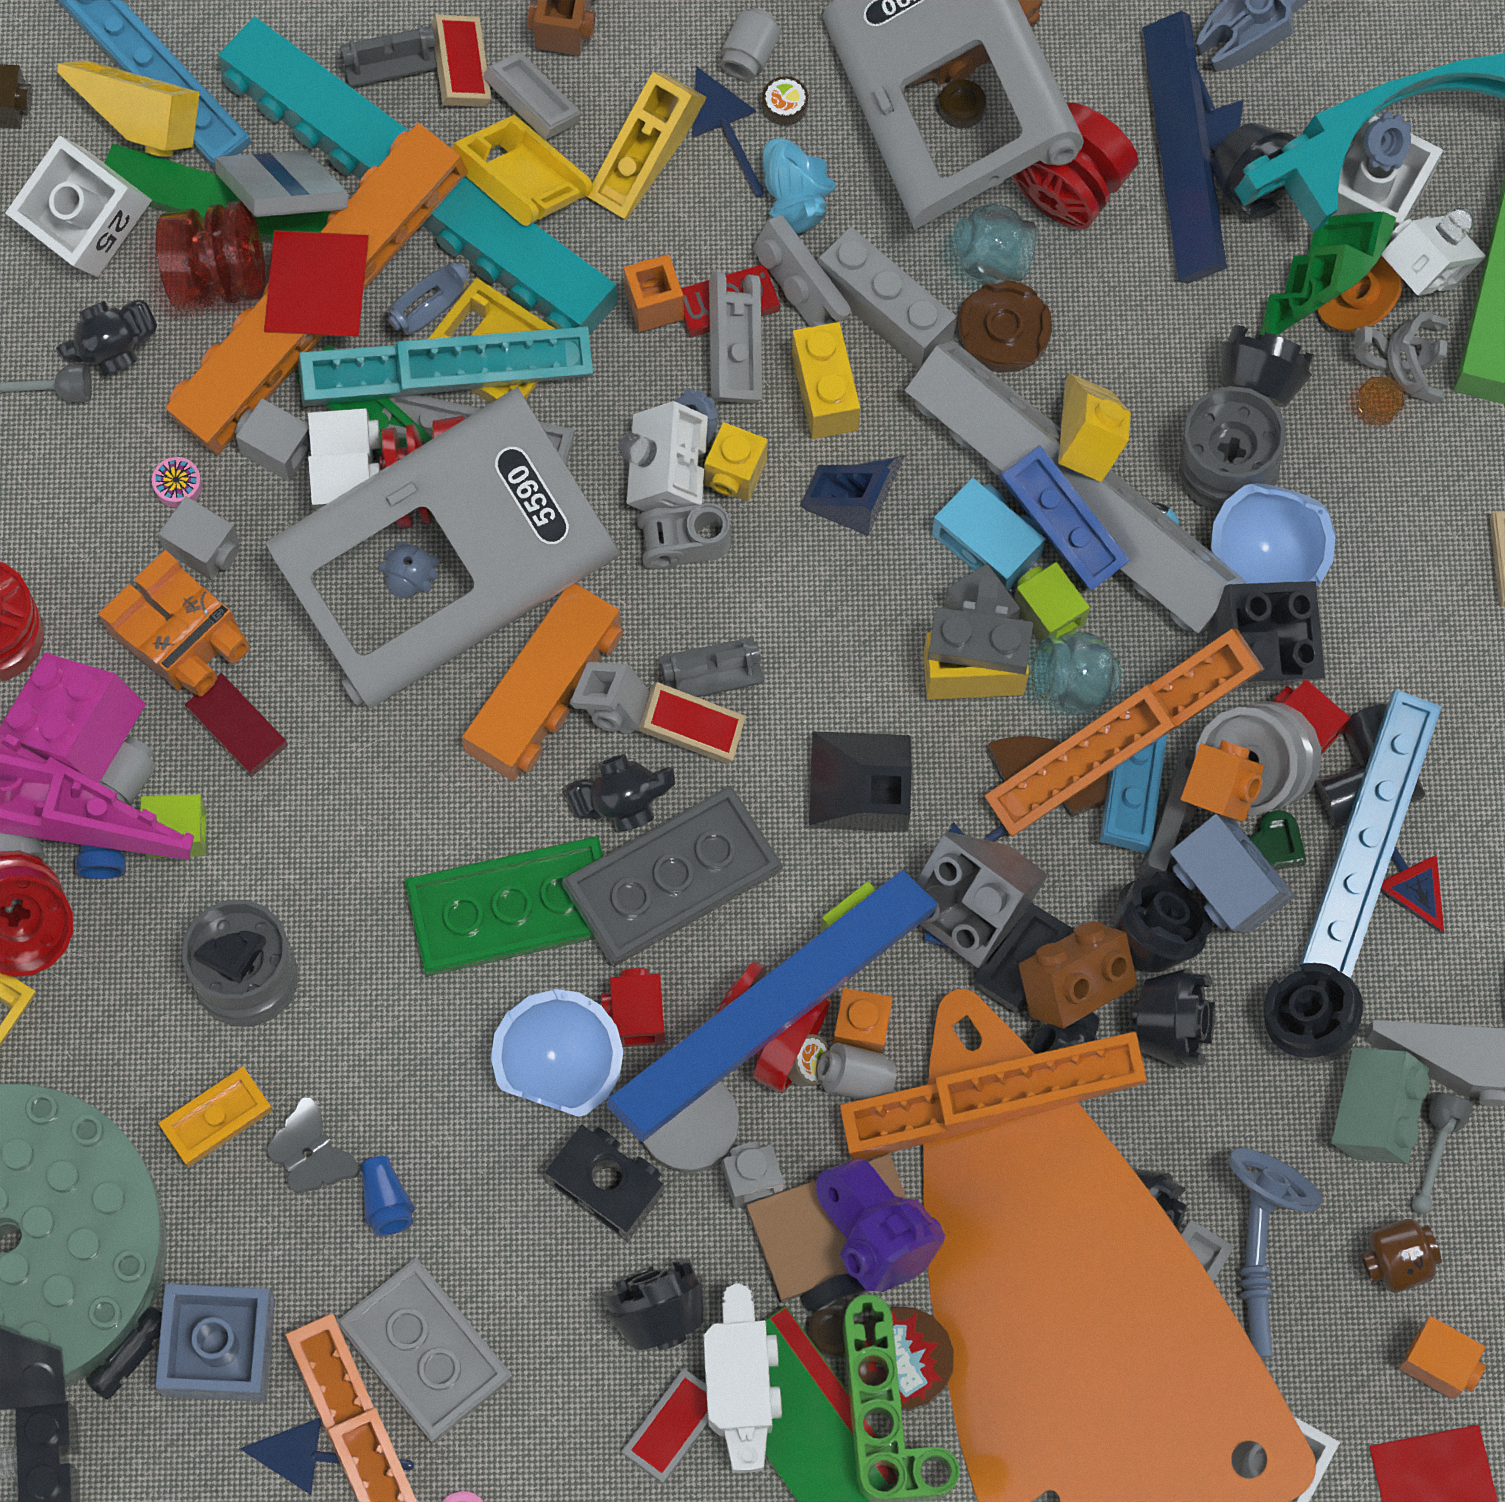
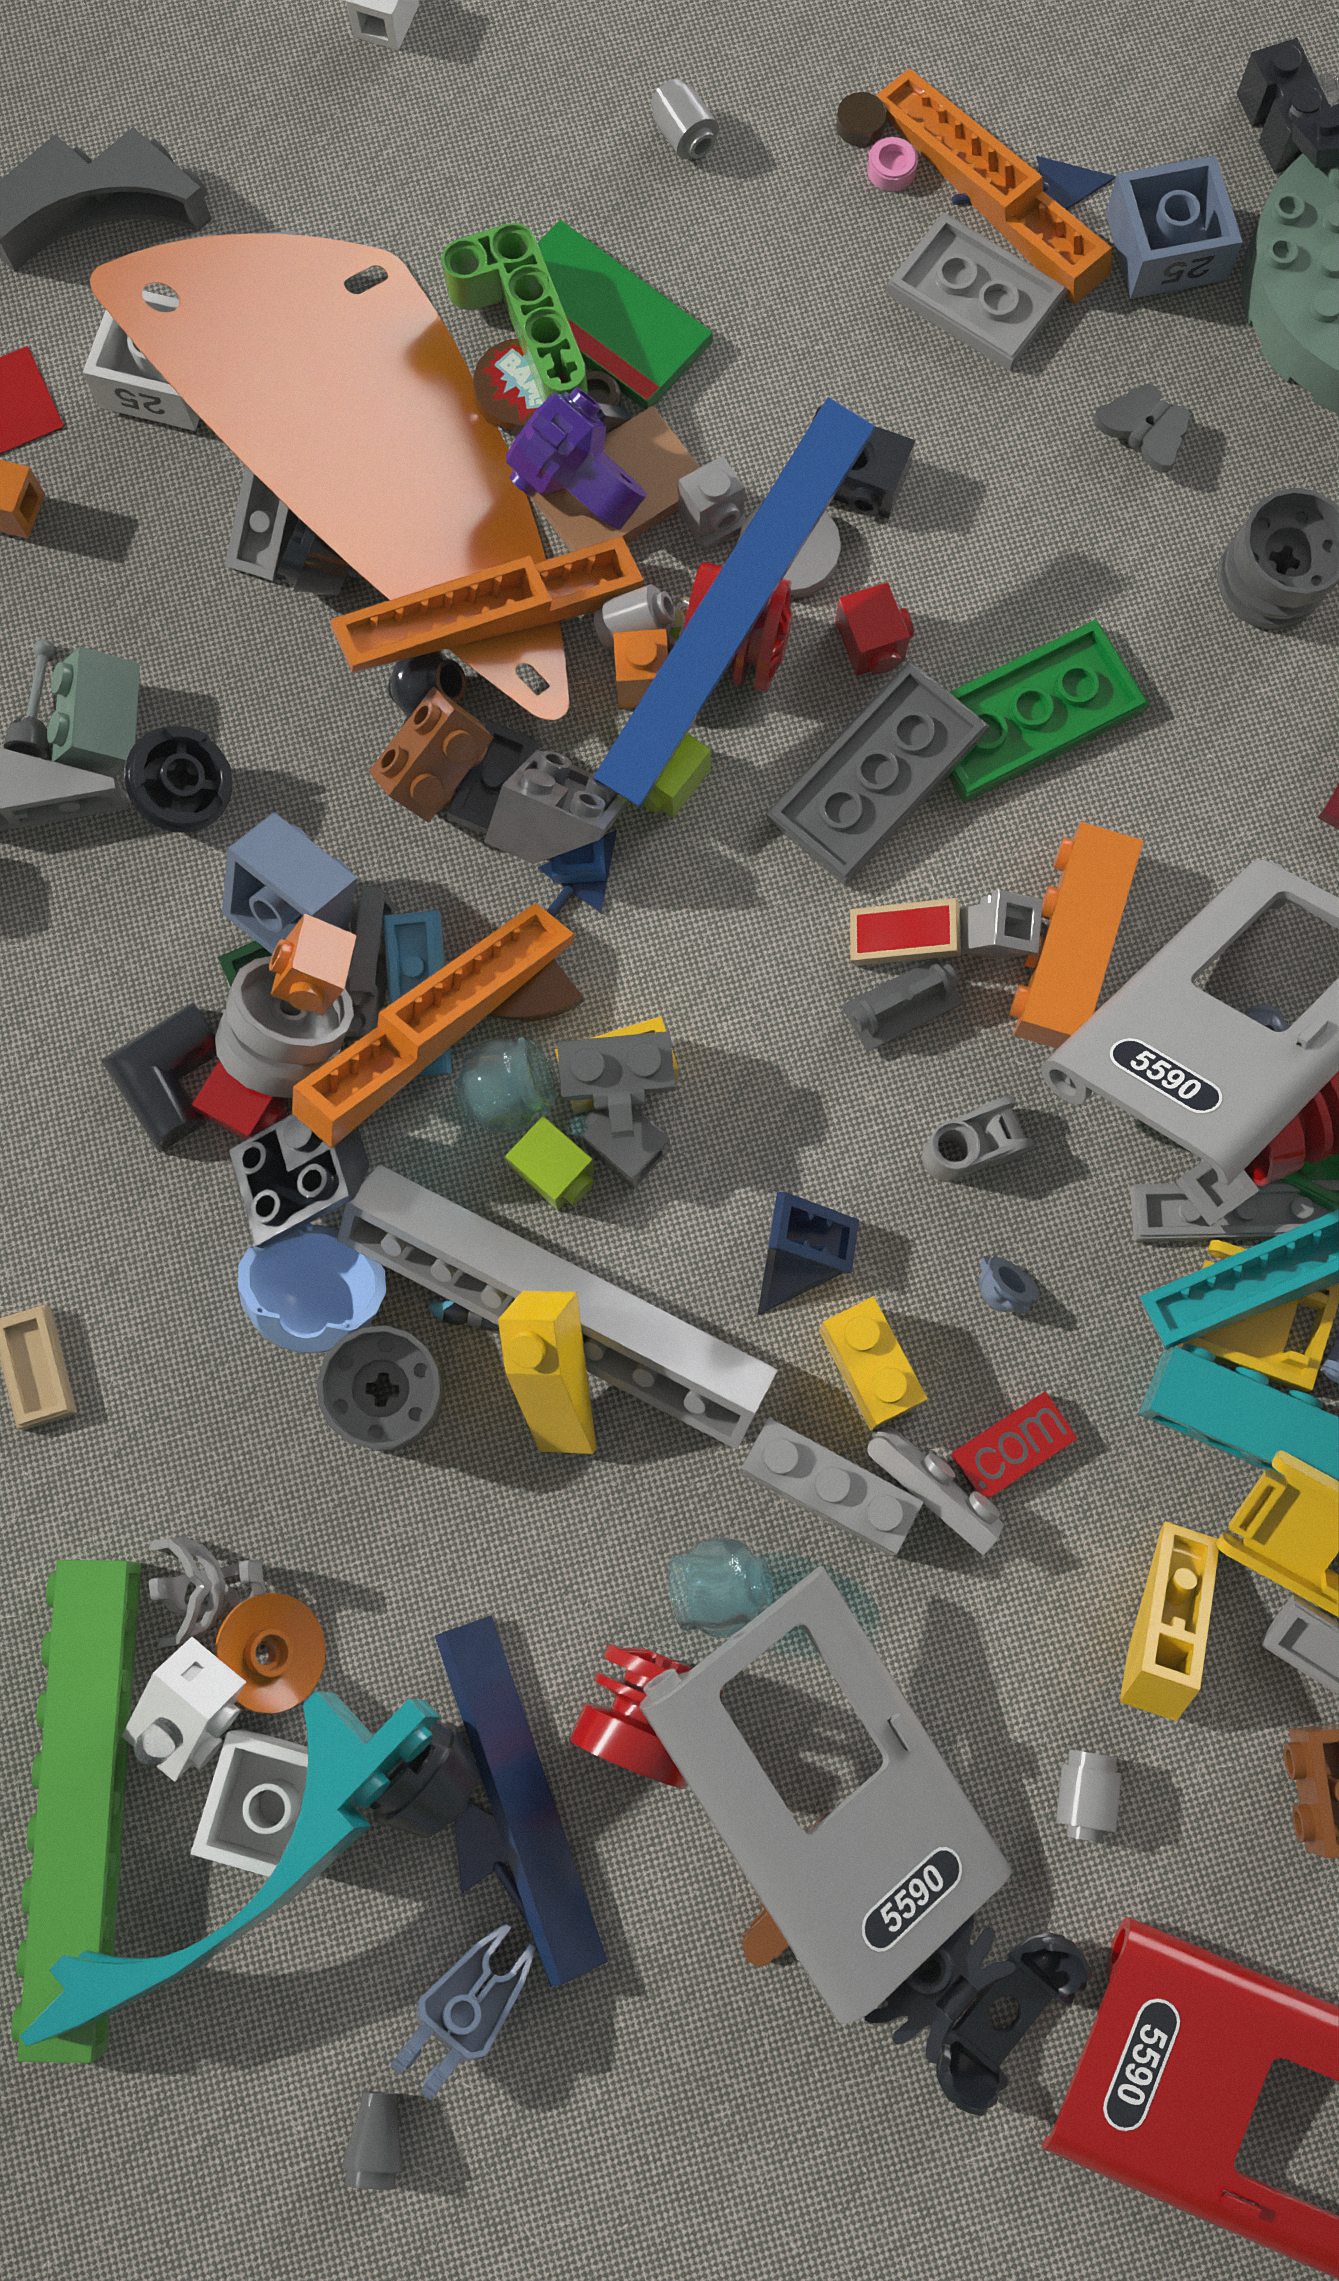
camera: 170 degrees right, 5 degrees up
(127, 1355) = (1250, 212): black axle -> none
(215, 1117) = (1250, 434): light orange plate -> none
(232, 953) = (1299, 546): black tile -> none
(385, 1199) = (1060, 402): blue cone -> none
(558, 1052) = (939, 557): light blue cylinder -> none
(620, 792) = (956, 835): black piece -> none
(653, 293) = (1105, 1417): orange brick -> none
(657, 1306) = (771, 356): black cone -> none
(665, 457) = (1026, 1213): white piece -> none
(670, 1428) = (724, 280): red tile -> none
(719, 111) = (1098, 1701): dark blue piece -> none
(735, 340) = (989, 1384): light grey hinge -> none
(735, 462) = (946, 1235): yellow brick -> none
(738, 1380) = (673, 310): white hinge -> none
(785, 100) = (1022, 1733): tile -> none
(796, 184) = (975, 1614): medium azure hair -> none
(860, 781) = (707, 916): black slope -> none
(962, 103) = (807, 1789): dark brown tile -> none
(985, 530) = (638, 1228): medium azure brick -> none
(1005, 326) = (682, 1498): reddish brown tile -> none
(1064, 518) = (558, 1242): blue panel -> none
(1161, 922) = (359, 828): black cone -> none
(1175, 1017) = (322, 743): black cone -> none
(1264, 365) = (365, 1507): black cone -> none
(1269, 1189) = (193, 604): sand blue dish -> none
(1336, 262) = (303, 1650): green slope -> none
(1371, 832) = (149, 990): tile -> none
(1380, 400) = (223, 1517): clear orange tile -> none
(1387, 141) = (260, 1835): sand blue animal -> none
(1401, 1255) = (54, 581): reddish brown head -> none
(1417, 889) = (97, 966): piece -> none

